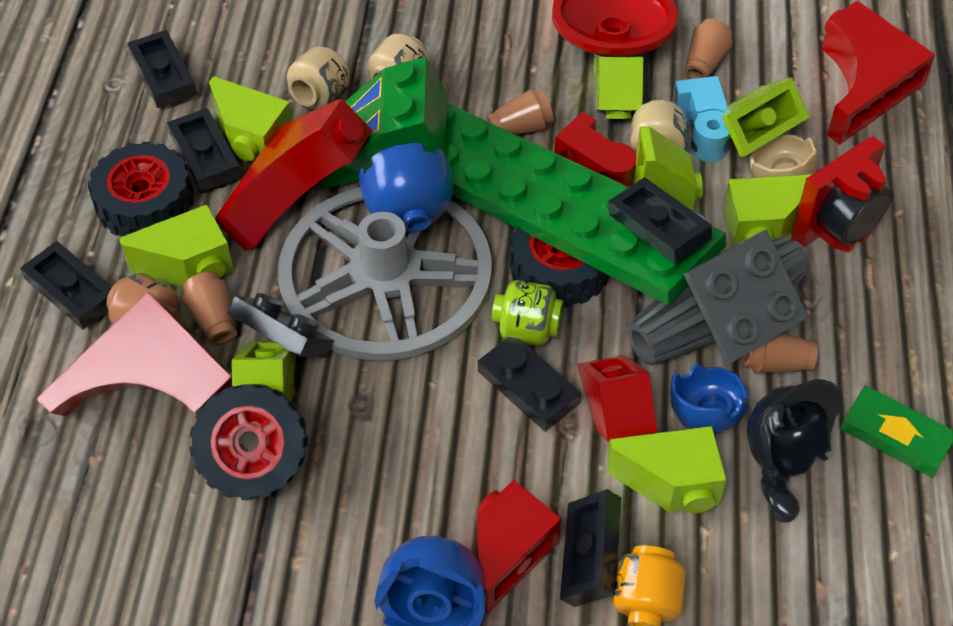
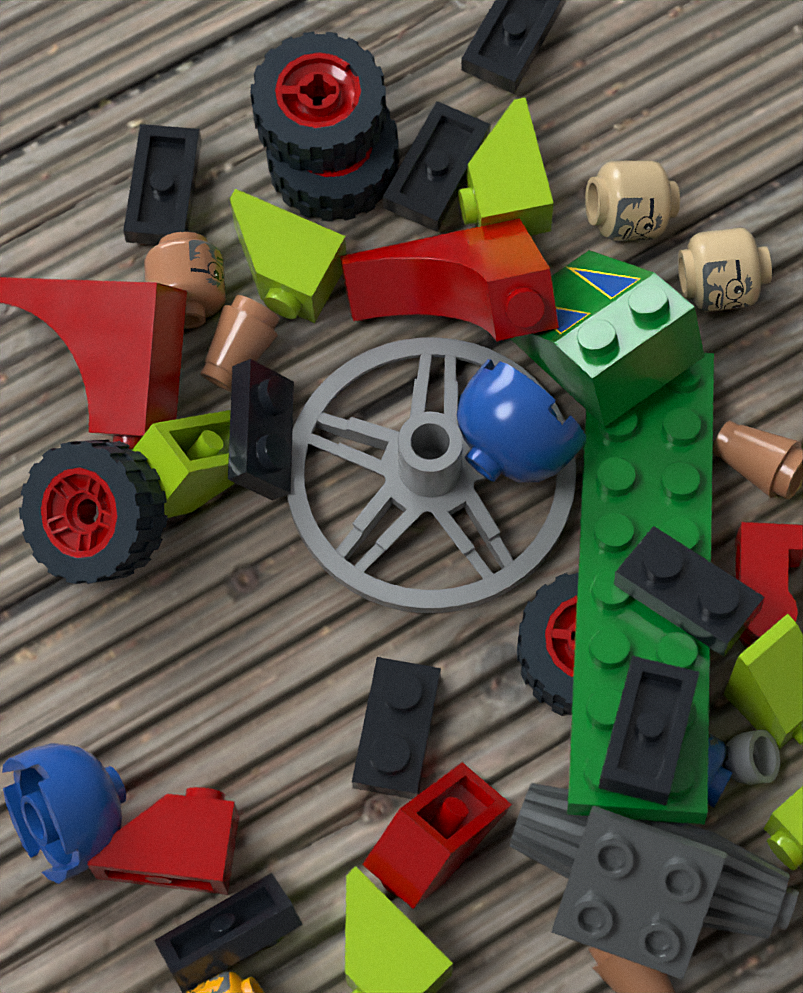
camera: 55 degrees right, 15 degrees up
(112, 162) = (325, 134): none -> black wheel
(528, 312) = (478, 666): lime head -> none
(583, 167) = (688, 590): none -> black plate
(709, 398) = (504, 935): blue hair -> none

